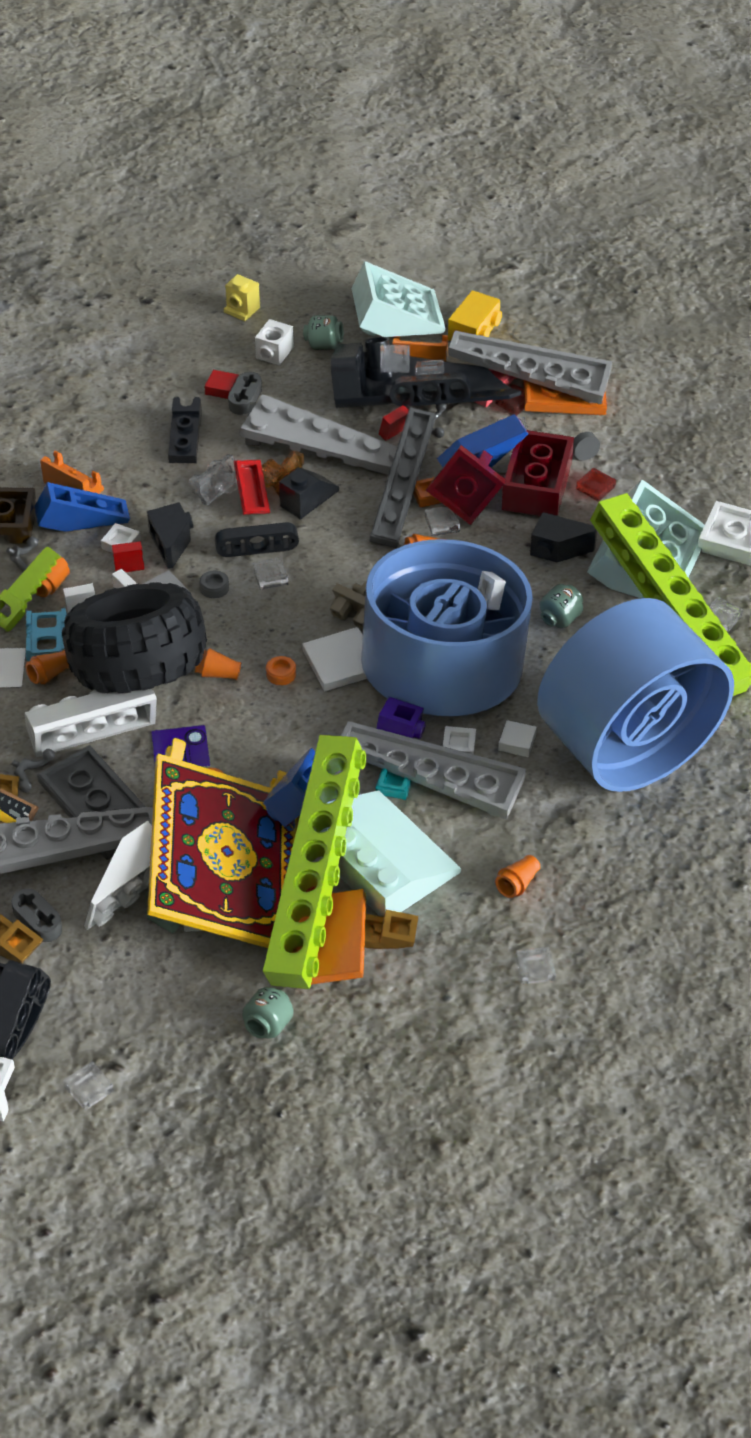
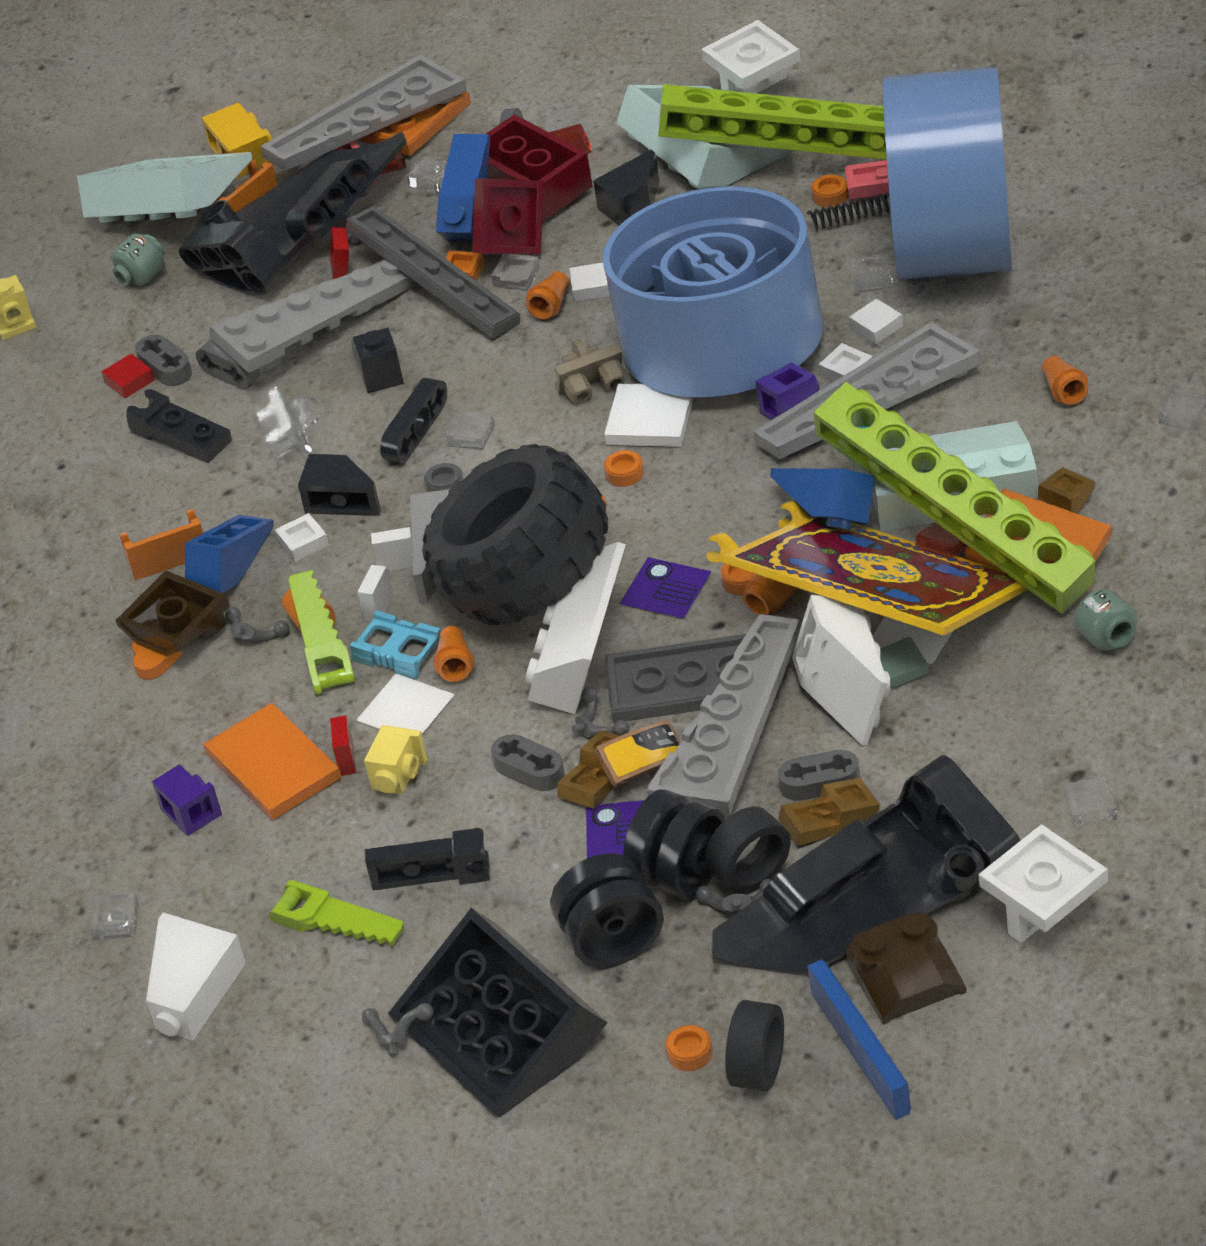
camera: 50 degrees left, 5 degrees down
(128, 556) = (343, 533): red tile -> none
(251, 487) = (334, 394): red tile -> none
(274, 342) = (110, 305): white brick -> none
(275, 472) = (332, 367): clear orange piece -> none
(395, 358) = (251, 208): clear tile -> none
(429, 367) = (291, 190): clear tile -> none
(492, 589) = (703, 222): white tile -> none

